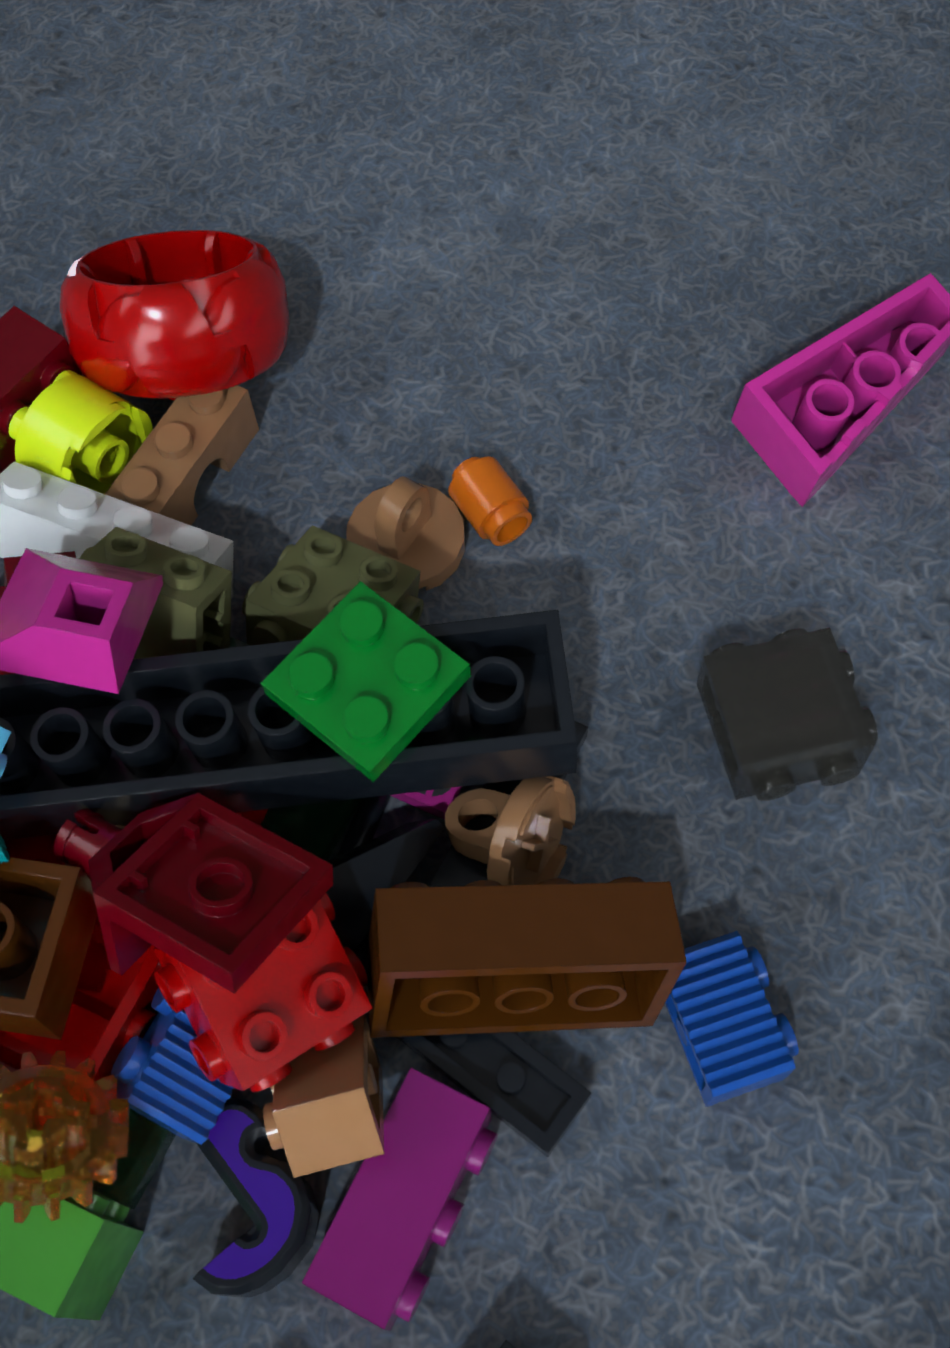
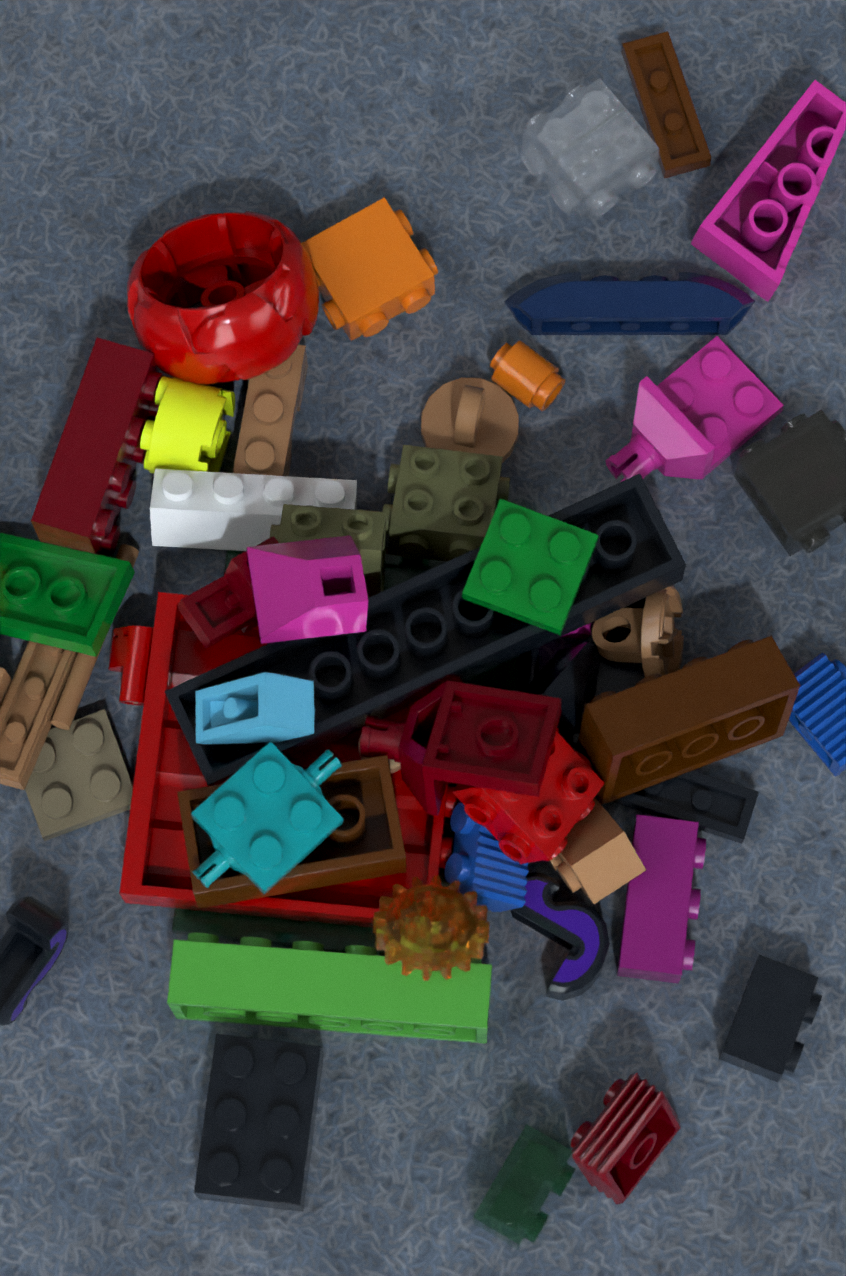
camera: 20 degrees left, 10 degrees up
(358, 343) = (370, 270): none -> orange brick
(640, 463) = (616, 307): none -> dark blue brick
(649, 297) = (589, 150): none -> clear brick
(669, 601) = (695, 417): none -> dark pink plate
(751, 279) = (666, 104): none -> reddish brown plate

